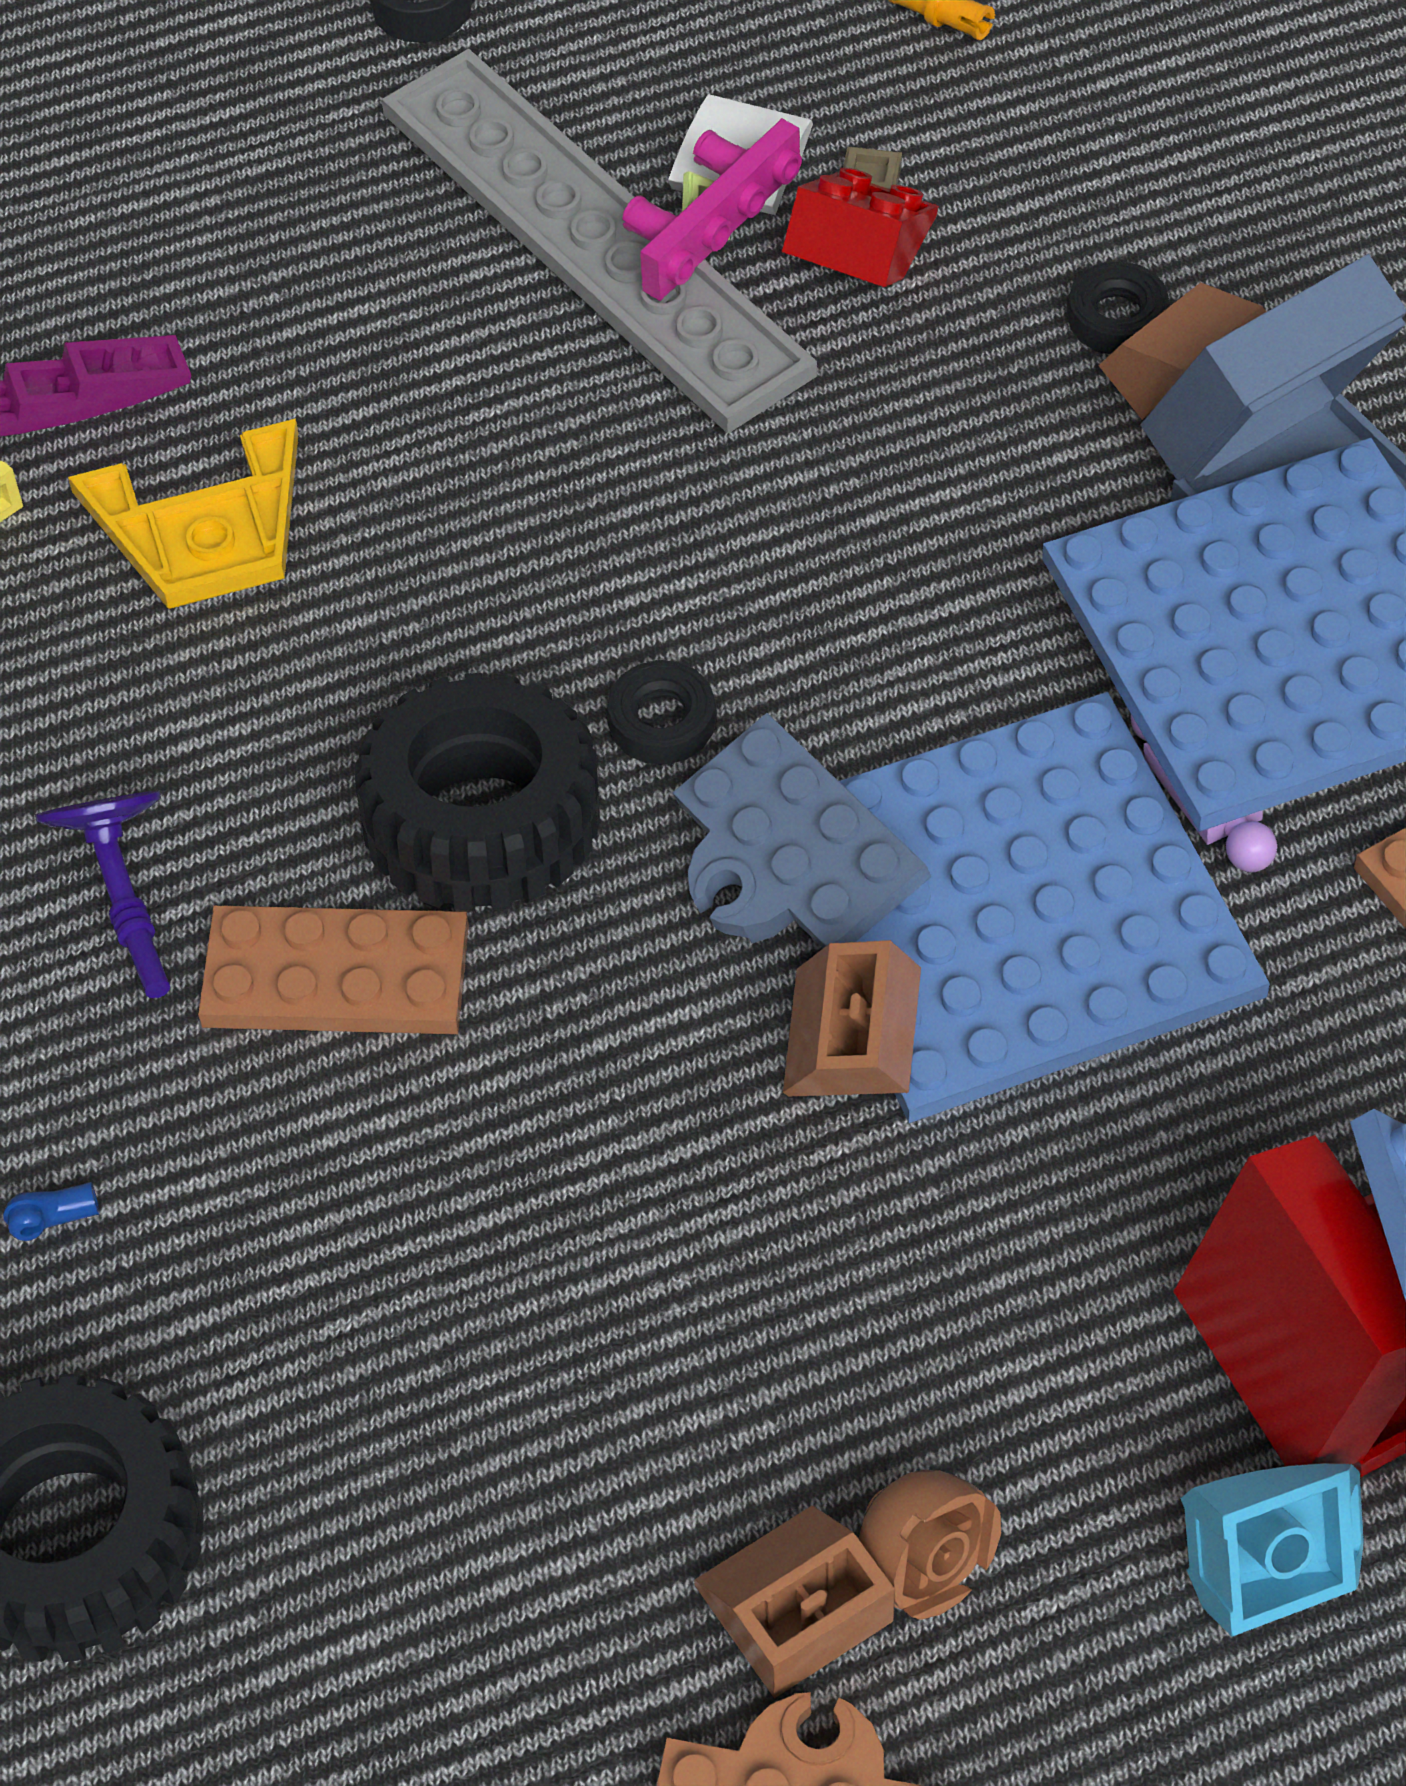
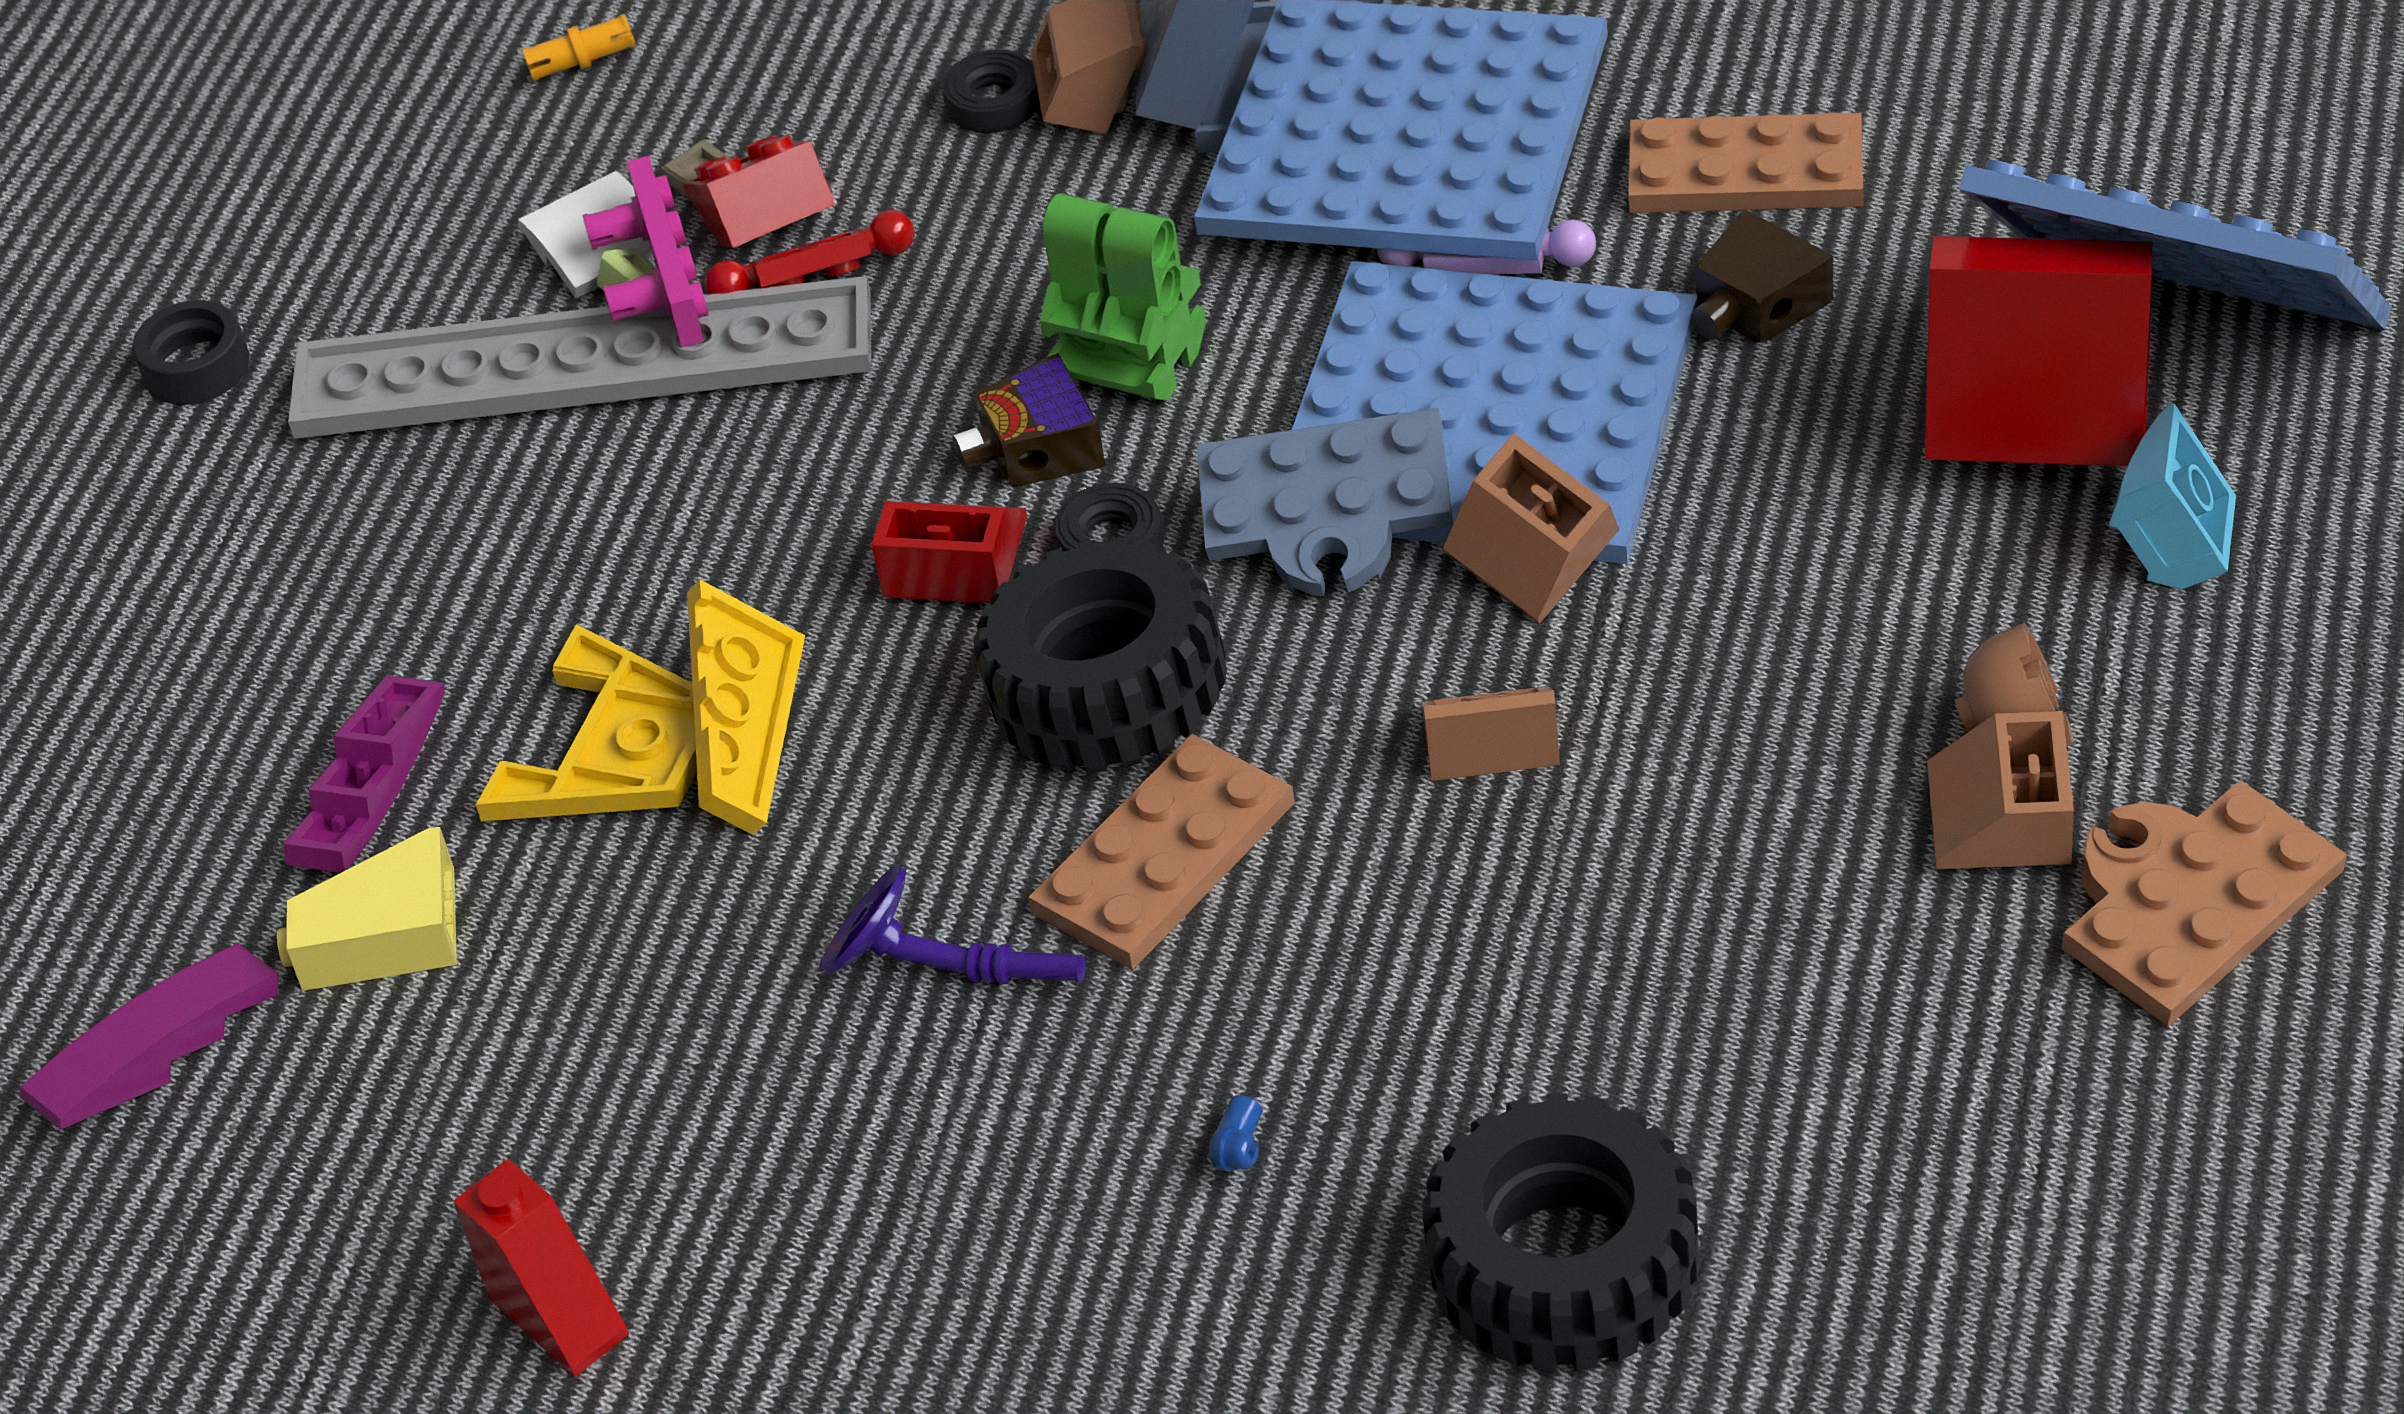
camera: 50 degrees left, 10 degrees down
(288, 574) = (741, 702): none -> yellow wing
(552, 607) = (946, 549): none -> red slope
(622, 1126) = (1491, 733): none -> nougat slope
(735, 583) = (1033, 426): none -> dark brown torso
(831, 320) = (888, 233): none -> red plate
(878, 553) = (1119, 296): none -> bright green connector
(1318, 1022) = (1759, 281): none -> dark brown torso

